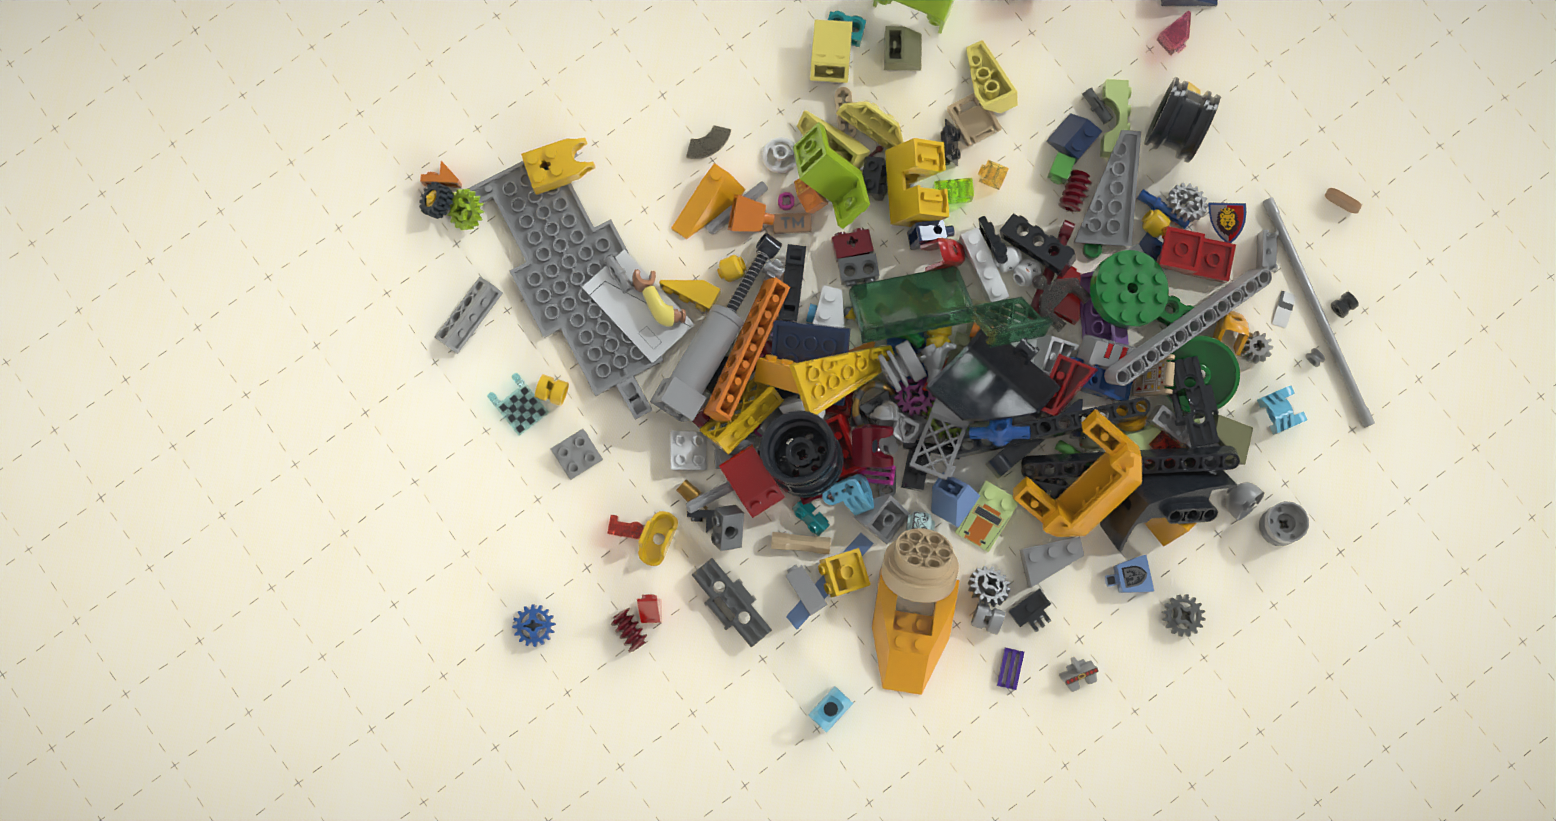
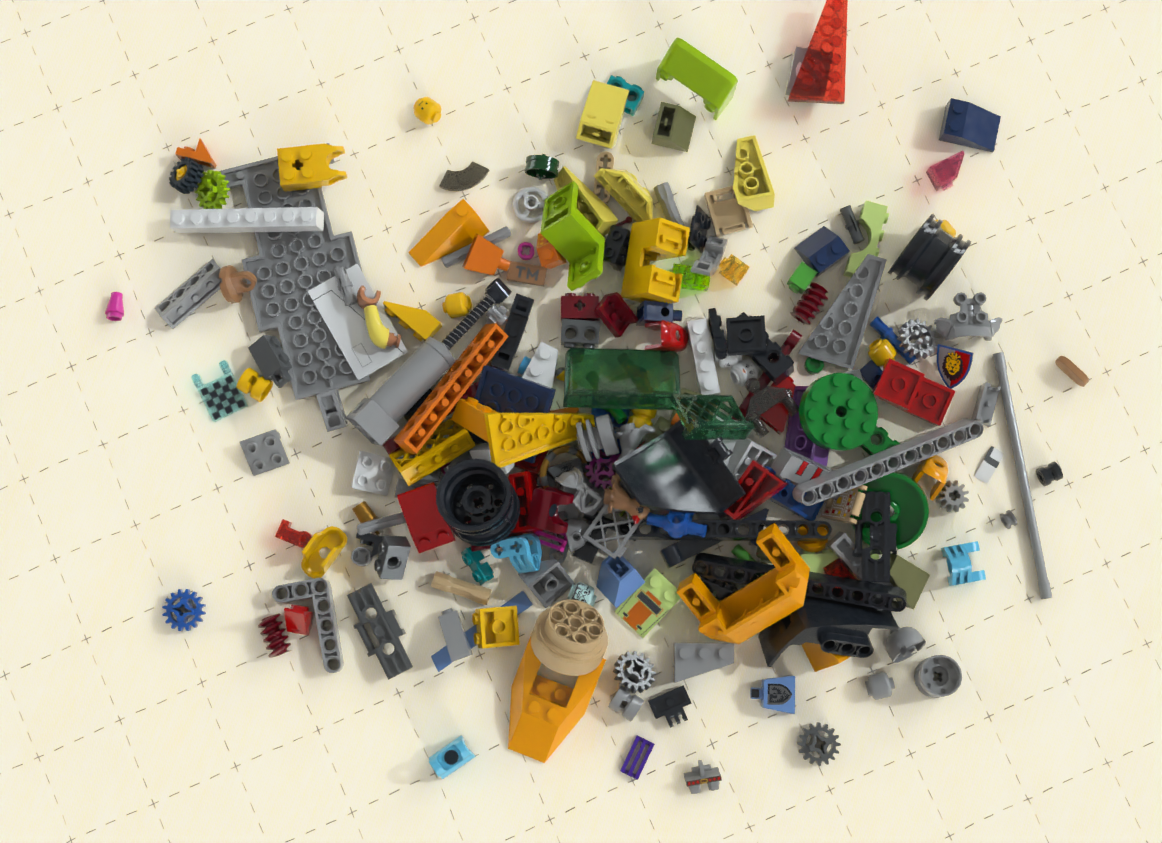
camera: 10 degrees right, 0 degrees up
(396, 347) = (115, 307): none -> dark pink cone
(506, 230) = (247, 220): none -> white brick
(507, 295) = (232, 284): none -> medium nougat tile
(563, 361) = (271, 360): none -> dark grey brick
(658, 85) = (427, 110): none -> yellow head
(670, 601) = (329, 614): none -> light grey beam
(696, 534) = (361, 556): none -> light grey wheel
(783, 115) = (541, 166): none -> dark green wheel
(889, 242) = (615, 313): none -> dark red bracket
(902, 460) = (574, 534): none -> light grey helmet
(912, 122) = (668, 205): none -> light grey axle
(938, 421) = (620, 500): none -> medium nougat animal
(969, 166) = (710, 257): none -> light grey slope
(1022, 235) = (746, 335): none -> black tile
(1229, 546) = (879, 685): none -> light grey head
(1233, 174) = (968, 320): none -> light grey piece

